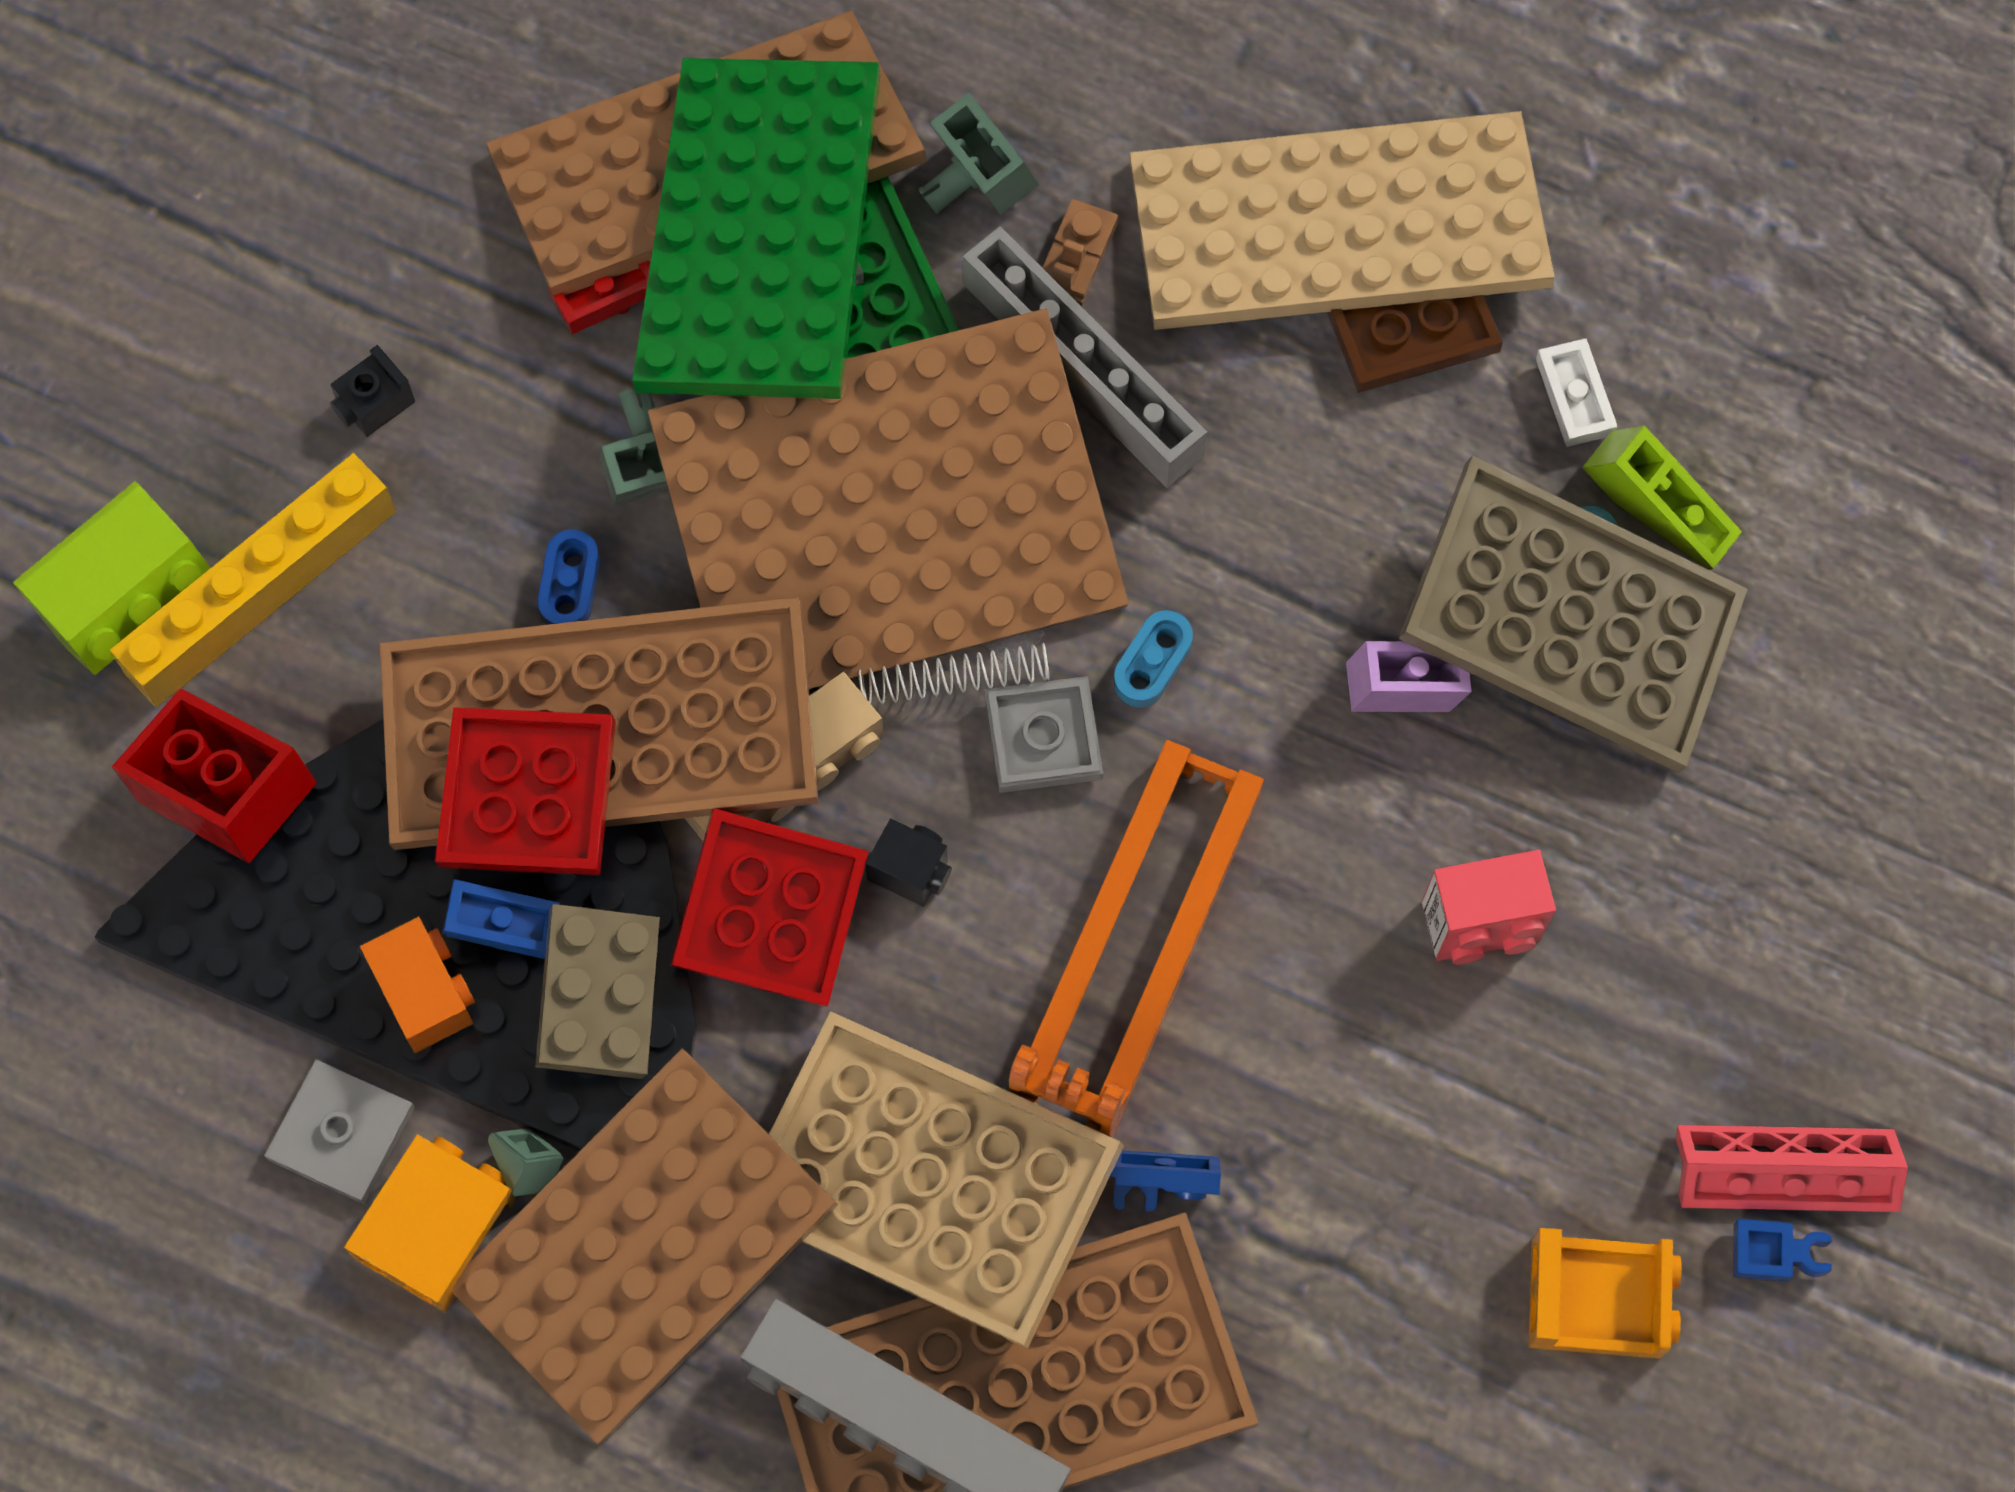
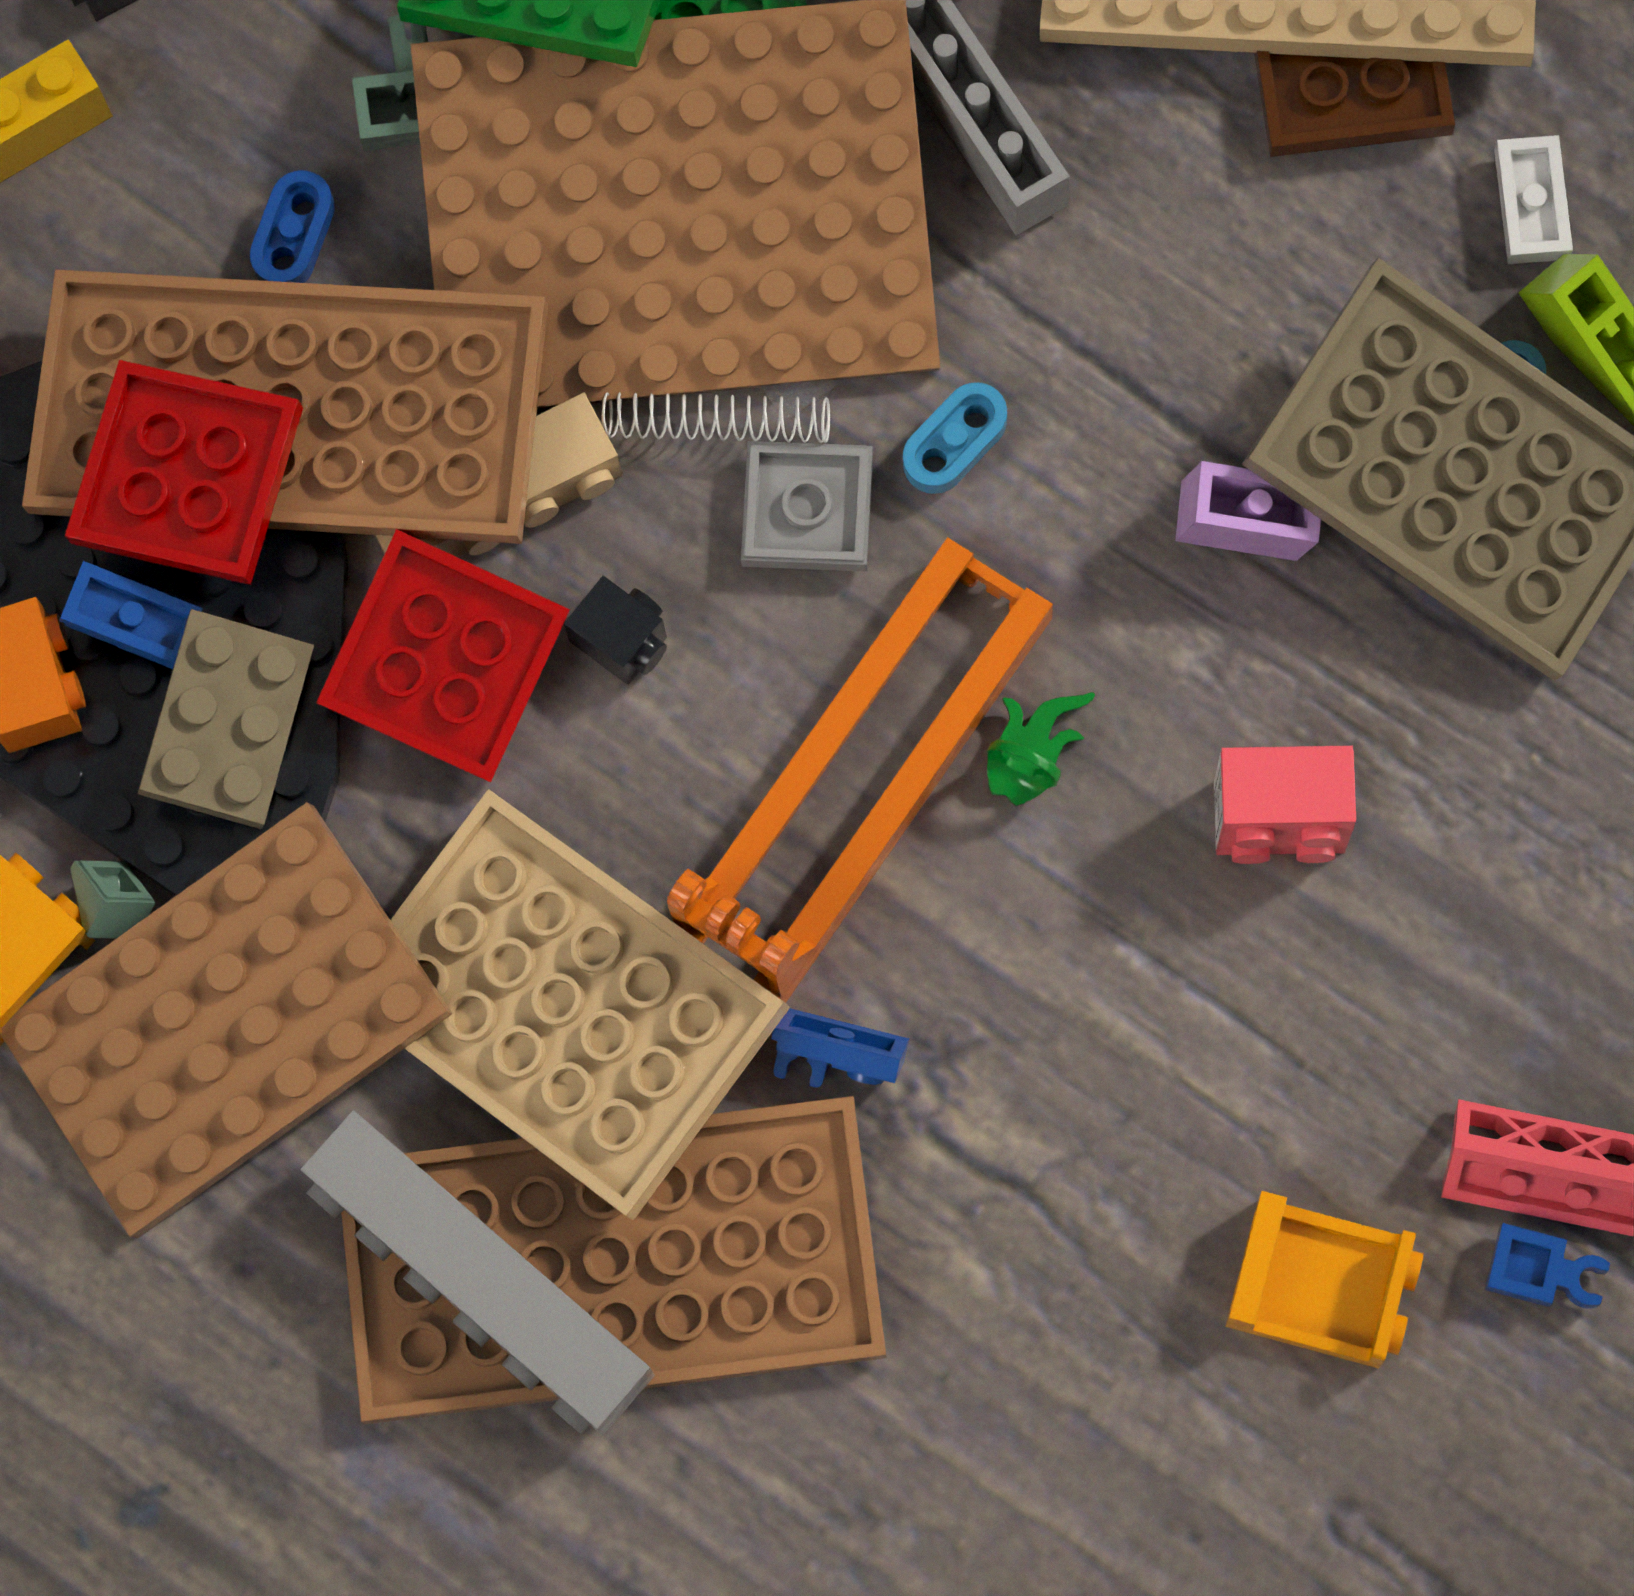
camera: 20 degrees right, 5 degrees up
(1265, 910) = (1024, 757): none -> green piece

